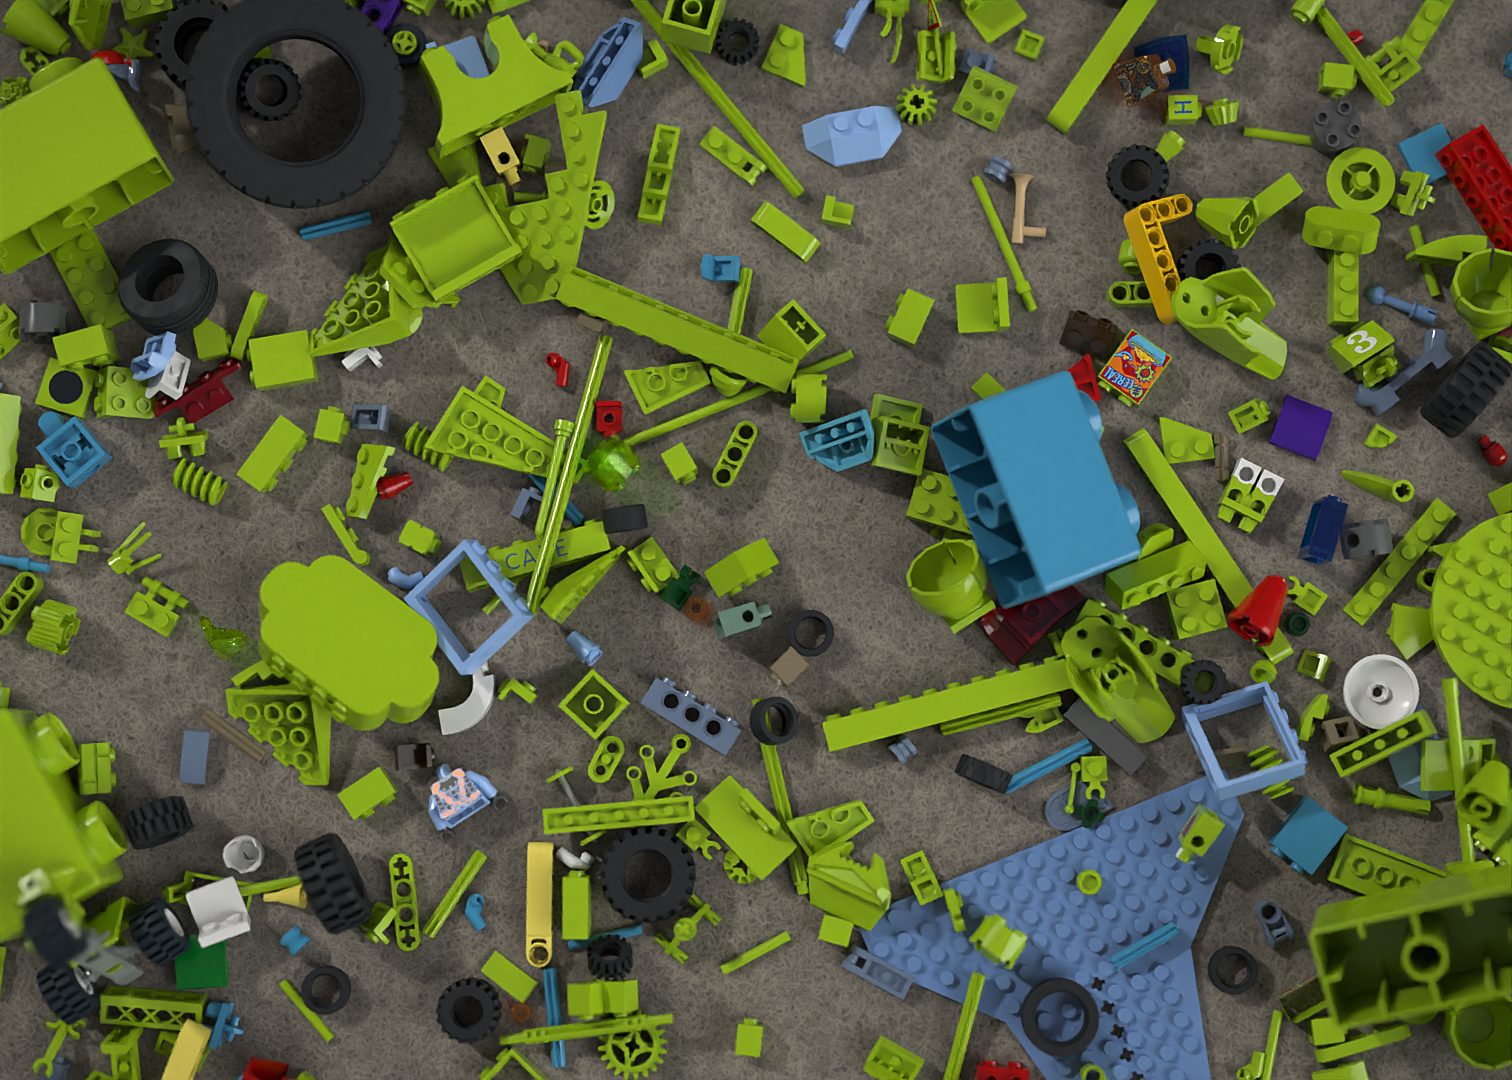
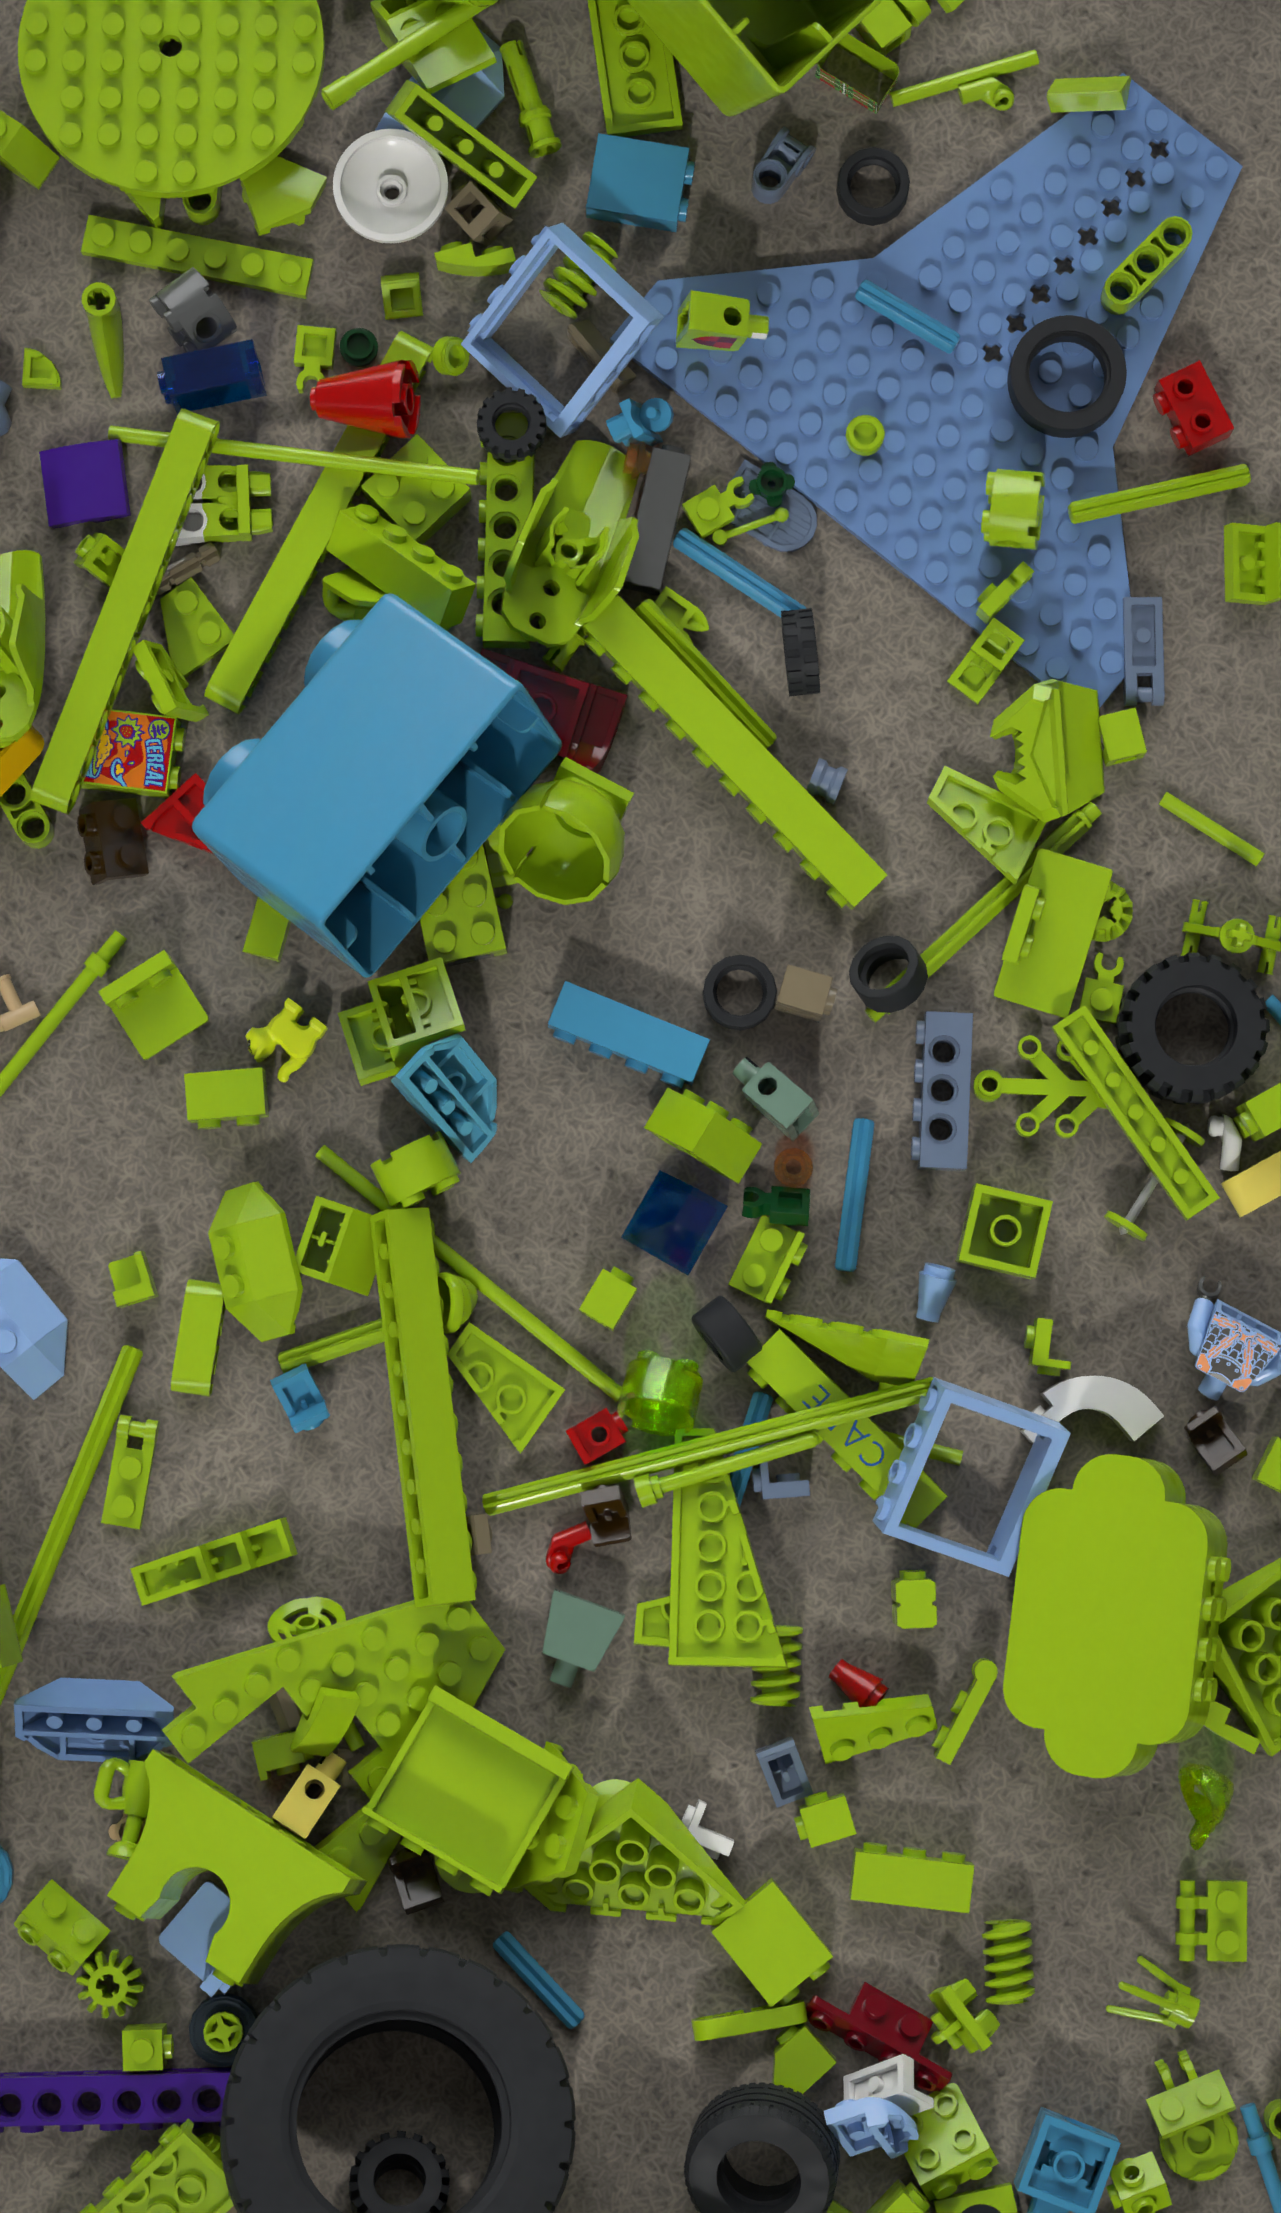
camera: 120 degrees left, 0 degrees up
(402, 580) = (982, 1592): light blue arm -> none
(423, 187) = (416, 1880): none -> dark brown bracket
(507, 347) = (577, 1635): none -> sand green torso
(536, 184) = (327, 1722): none -> lime slope
(562, 399) = (607, 1515): none -> dark brown bracket
(606, 759) = (1067, 1175): lime plate -> none
(653, 59) = (53, 1662): lime panel -> none
(662, 634) = (854, 1195): none -> dark azure axle
(703, 526) = (674, 1222): none -> clear blue slope
(740, 444) = (532, 1228): lime beam -> none
(809, 283) = (256, 1262): none -> lime wedge
(821, 558) = (628, 1034): none -> dark azure brick
(925, 371) = (284, 1030): none -> neon yellow animal
(1145, 744) = (636, 460): none -> clear orange plate
(1160, 409) = (166, 682): none -> lime wing
(1166, 757) = (641, 421): none -> dark azure hips
(1214, 408) = (125, 611): none -> lime beam
(1252, 551) = (310, 457): none -> lime piece

